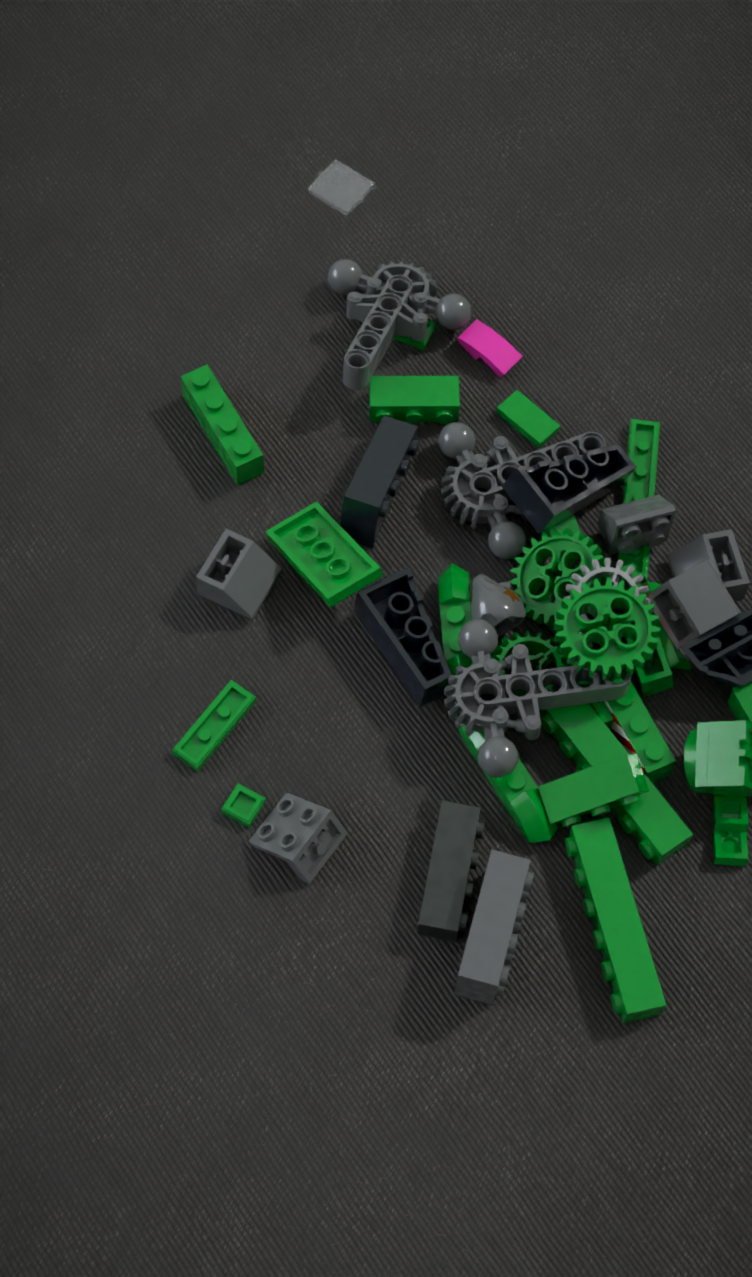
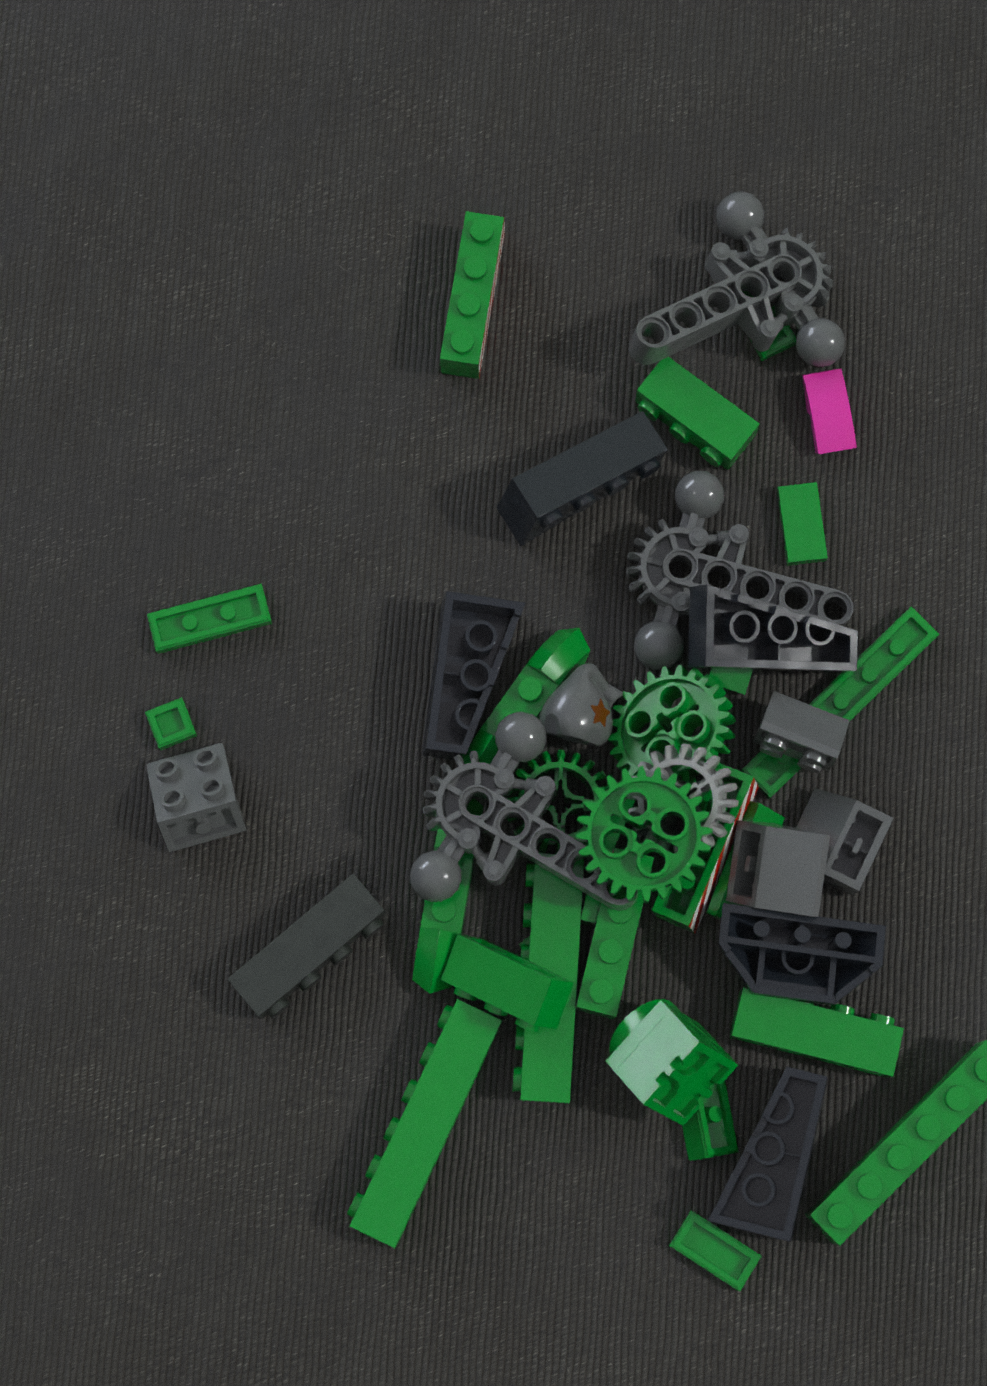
camera: 45 degrees right, 15 degrees up
(237, 574) = (353, 477): dark grey slope -> none
(324, 554) = (452, 521): green plate -> none
(341, 187) = (833, 99): clear piece -> none
(491, 936) = (293, 1039): dark grey brick -> none
(729, 831) = (616, 1129): green slope -> none

